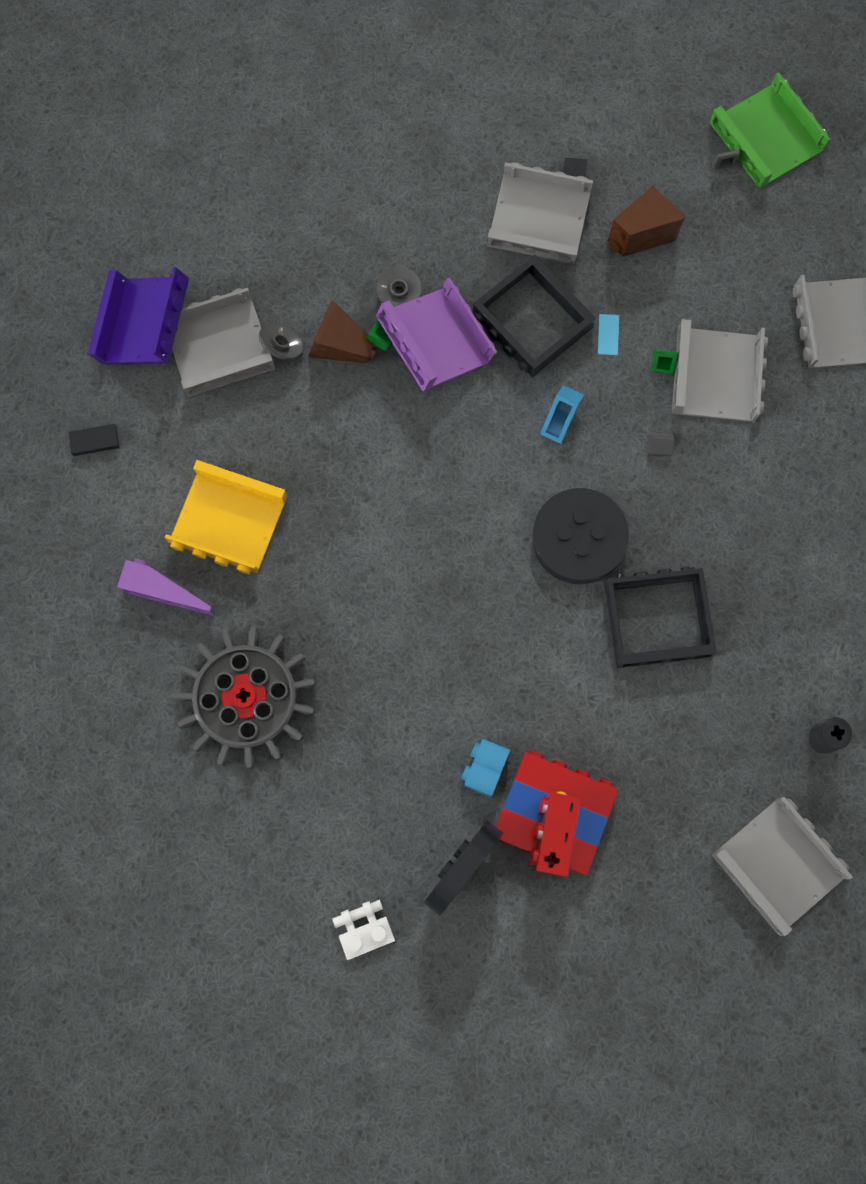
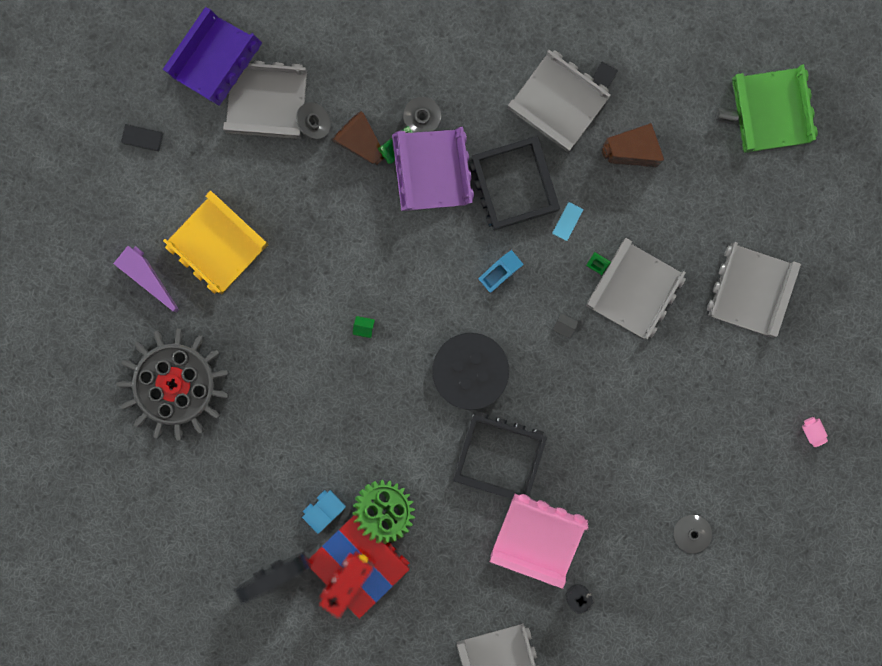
camera: 25 degrees right, 10 degrees up
(367, 937) = (189, 591): white plate -> none
(436, 540) = (363, 326): none -> green slope
(556, 736) = (373, 524): none -> bright green gear
(749, 689) = (538, 540): none -> bright pink panel

